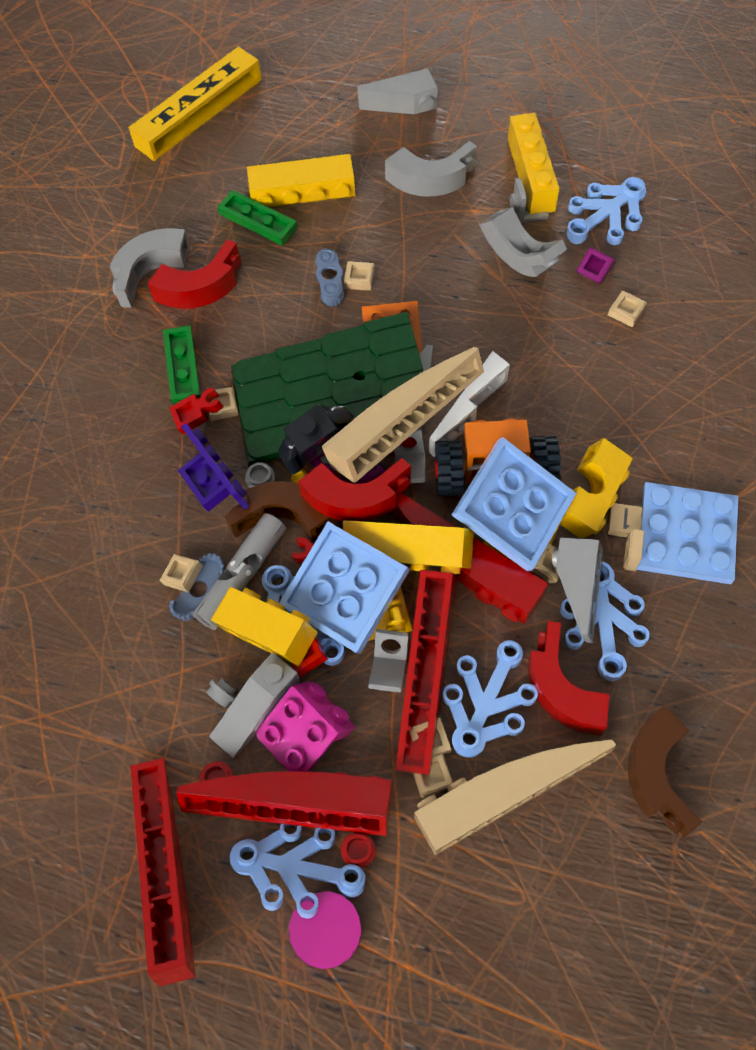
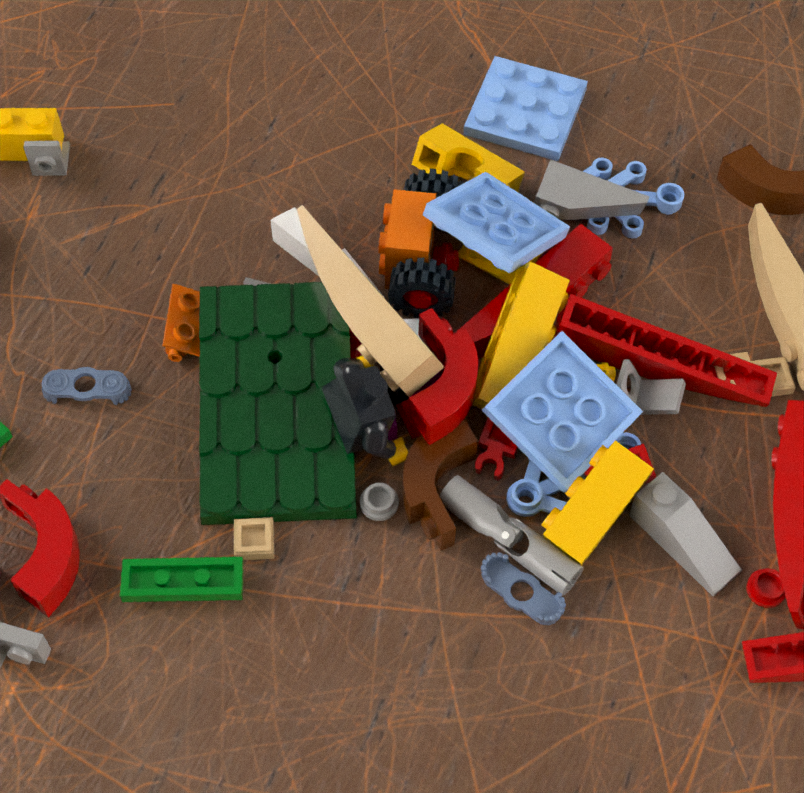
camera: 85 degrees left, 5 degrees down
(181, 573) = (500, 605): tan tile -> none
(193, 410) = (267, 570): red plate -> none
(206, 477) = (373, 554): dark purple bracket -> none
(222, 692) = (665, 568): light grey plate -> none
(303, 727) = (721, 484): dark pink bracket -> none
(359, 275) = (94, 352): tan tile -> none
(486, 703) = (697, 311): light blue plant -> none
(517, 246) = (121, 174): light grey arch -> none
(563, 701) = (684, 250): red arch -> none
(595, 265) = (162, 111): magenta slope -> none
(624, 519) = (507, 149): tan tile -> none
(627, 308) = (232, 96): tan tile -> none
(630, 191) = (68, 55): light blue plant -> none
(633, 549) = (542, 149): tan tile -> none

